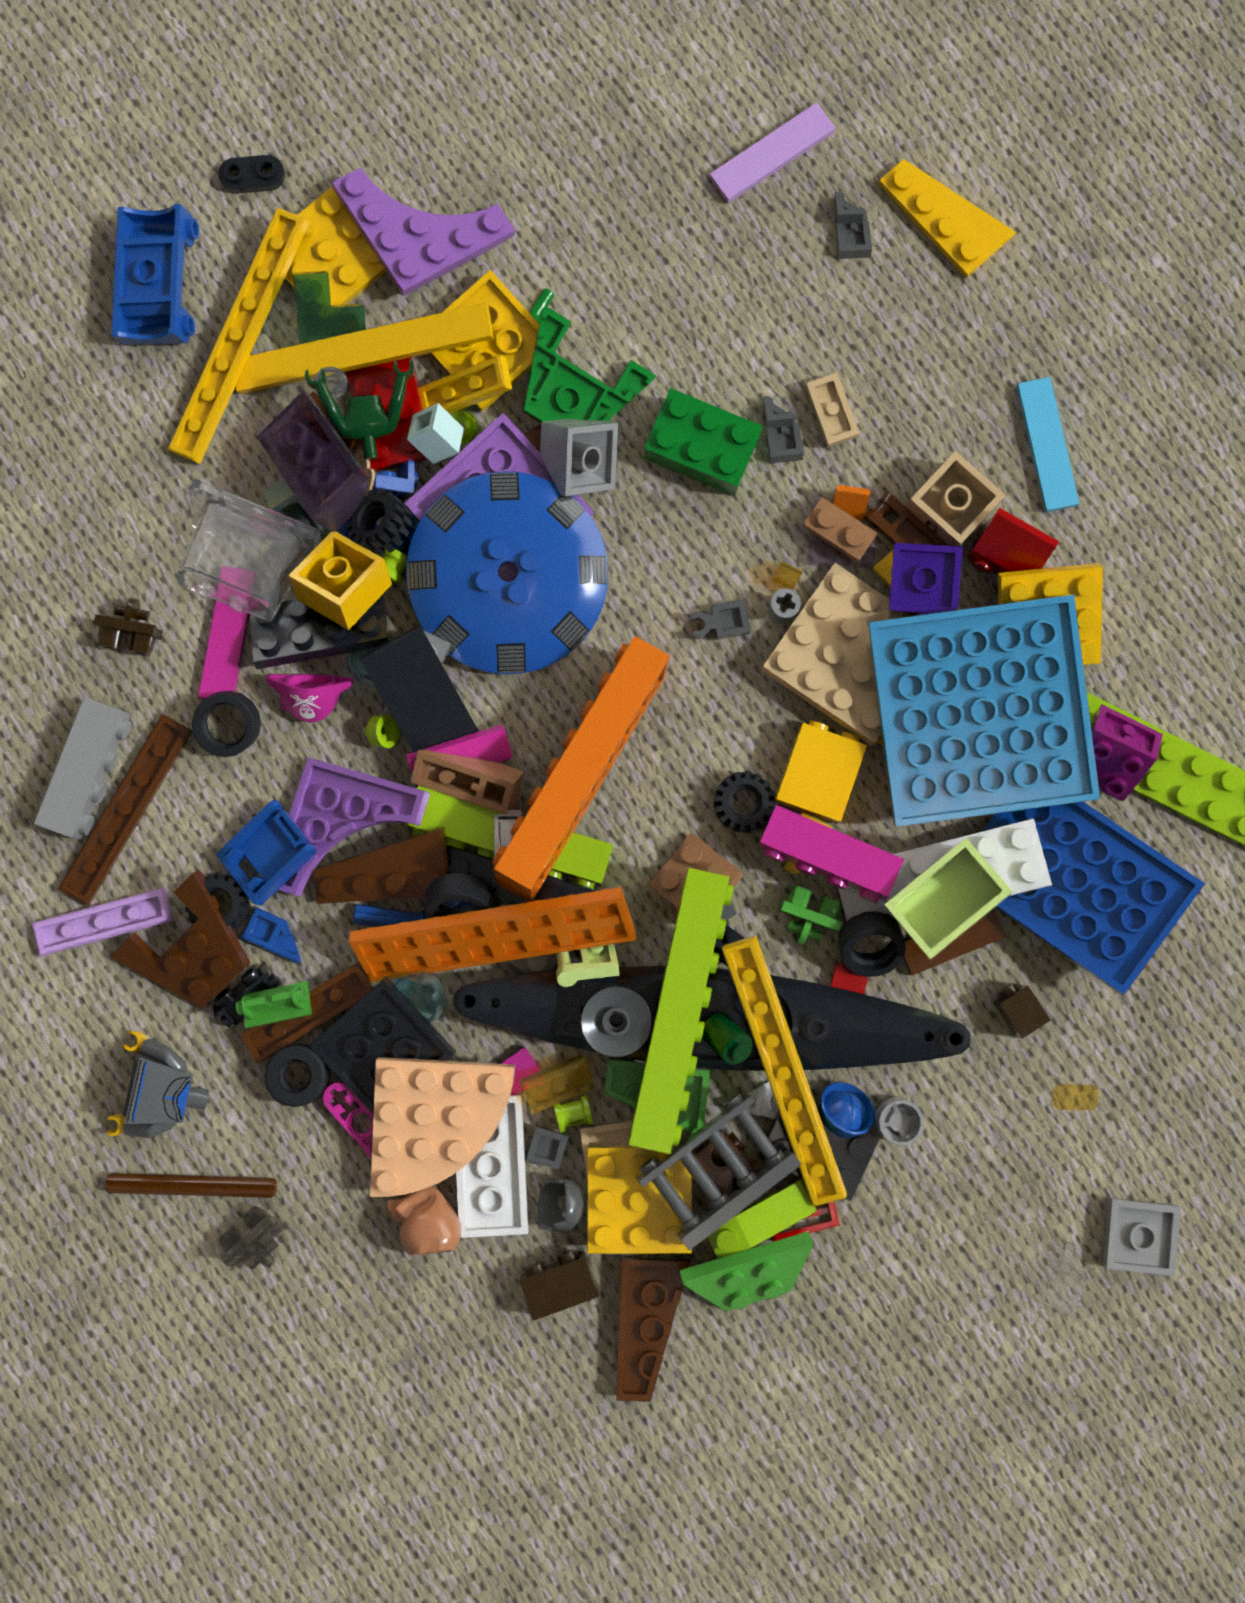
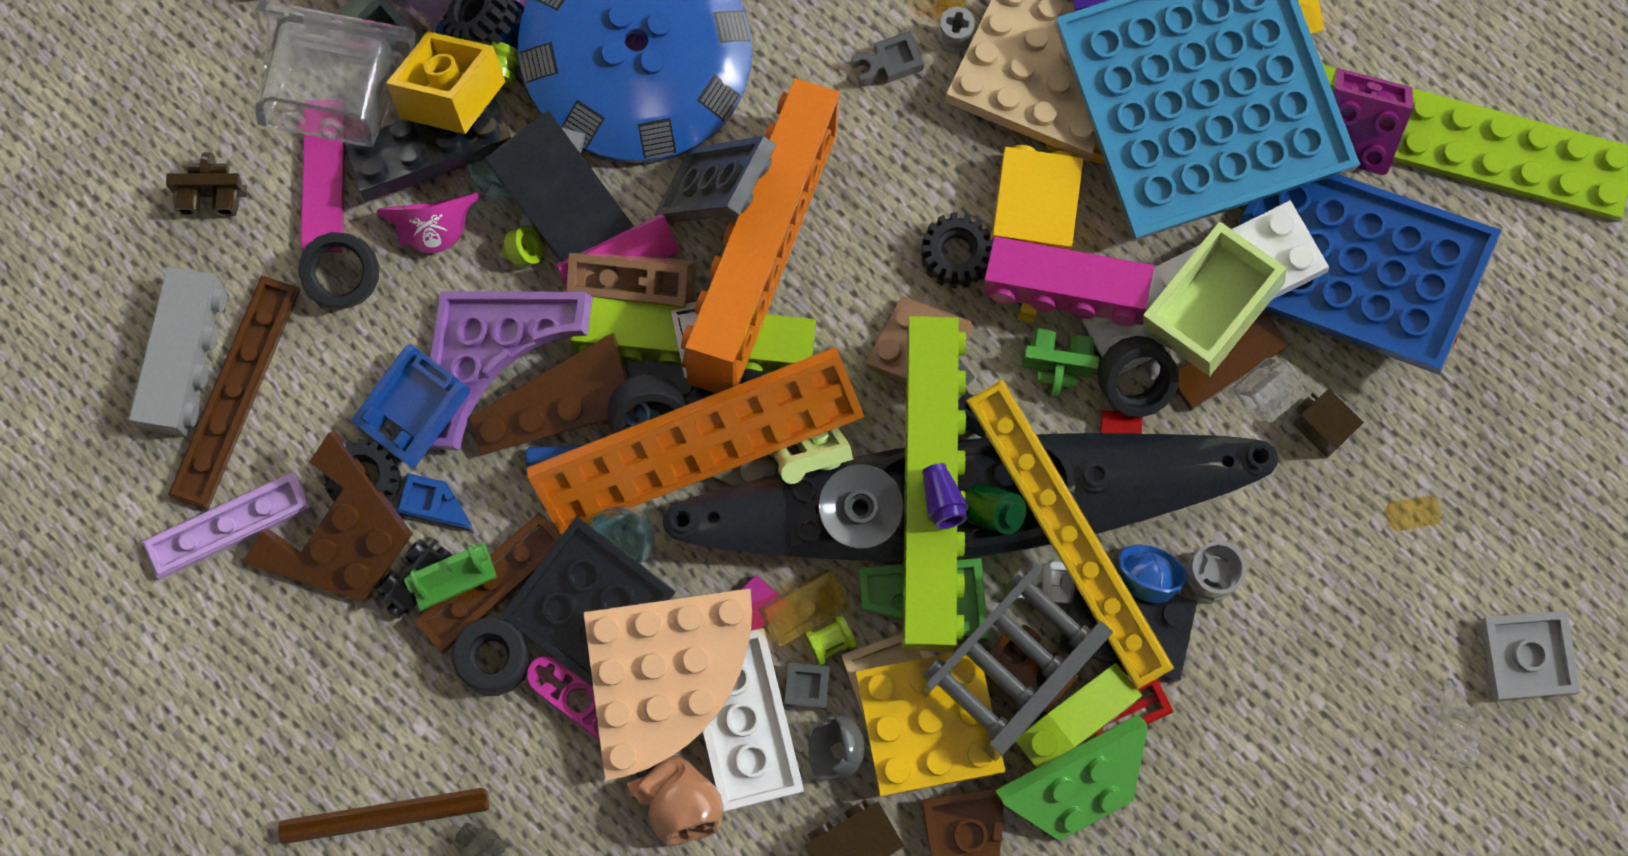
camera: 10 degrees left, 10 degrees down
(156, 1091) = (324, 706): dark grey torso -> none
(551, 714) = (716, 180): none -> dark grey plate
(683, 1032) = (943, 498): none -> dark purple cone
(980, 974) = (1269, 389): none -> clear brick

